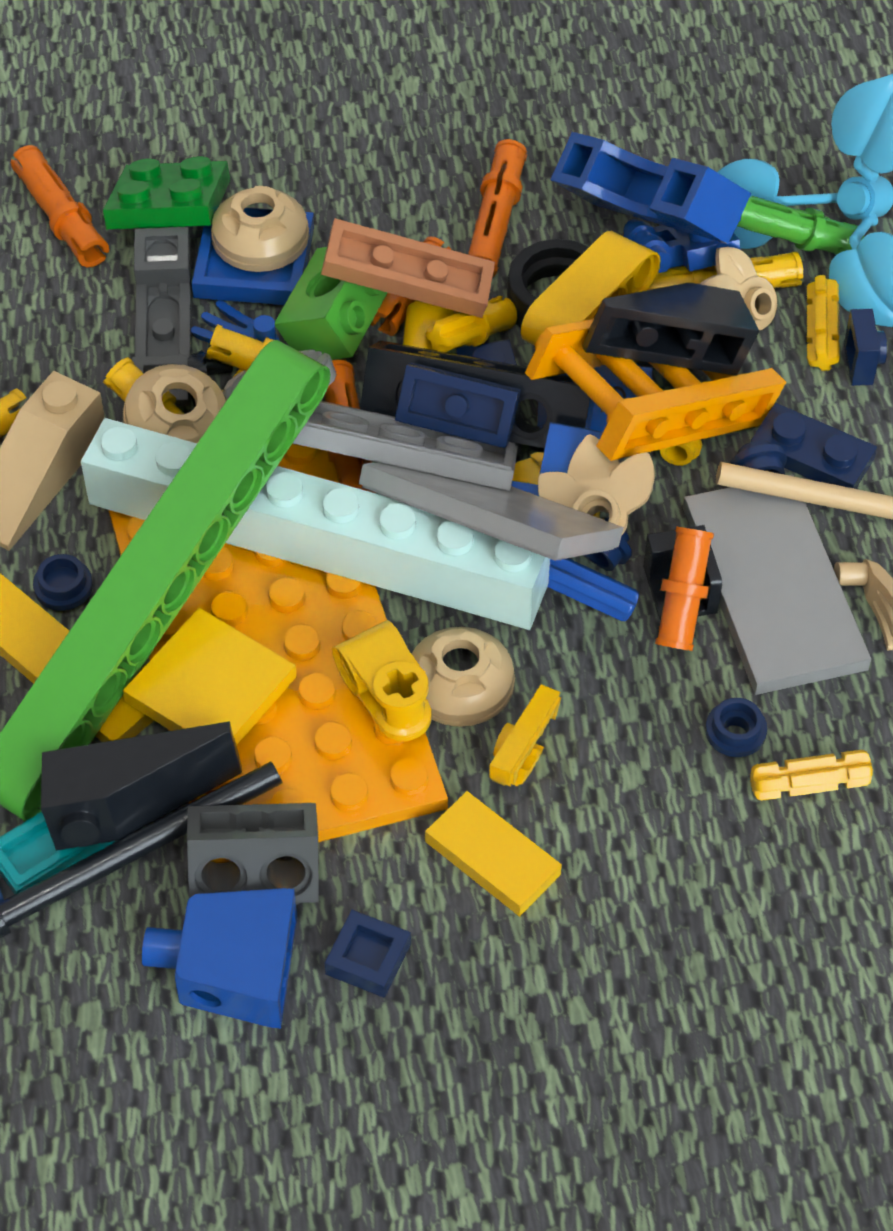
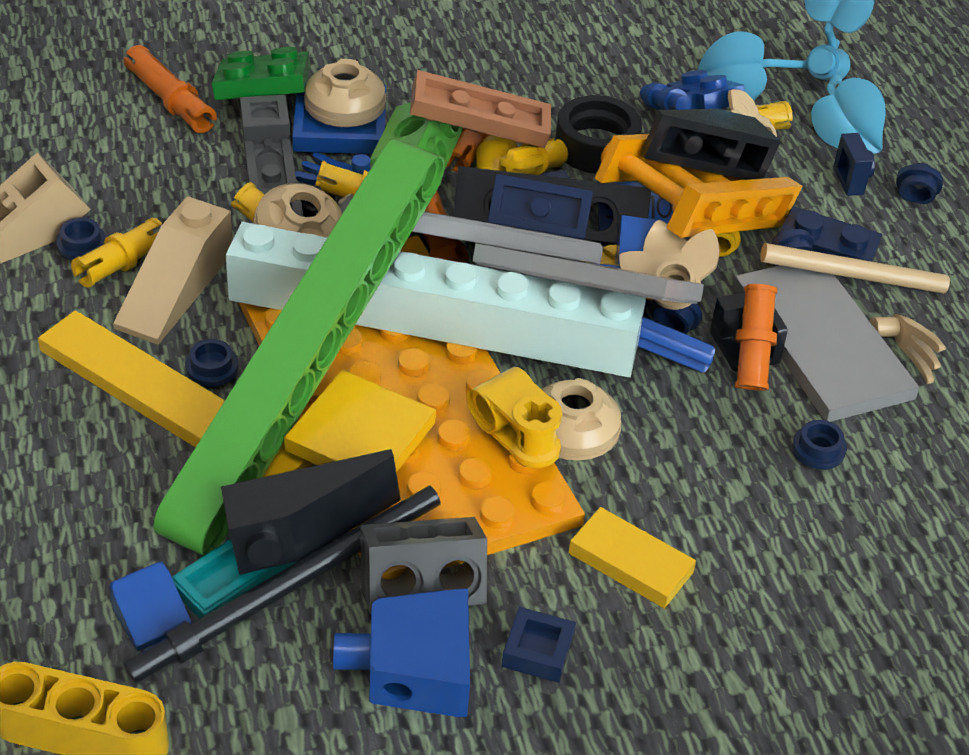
camera: 10 degrees left, 10 degrees down
(500, 192) = (536, 53): orange pin -> none
(516, 745) = (638, 464): yellow plate -> none
(604, 270) = (629, 115): yellow beam -> none
(674, 195) = (707, 51): blue arch -> none
(805, 228) = (787, 82): bright green pin -> none
(811, 774) = (891, 478): yellow axle -> none
(823, 323) = (815, 151): yellow axle -> none

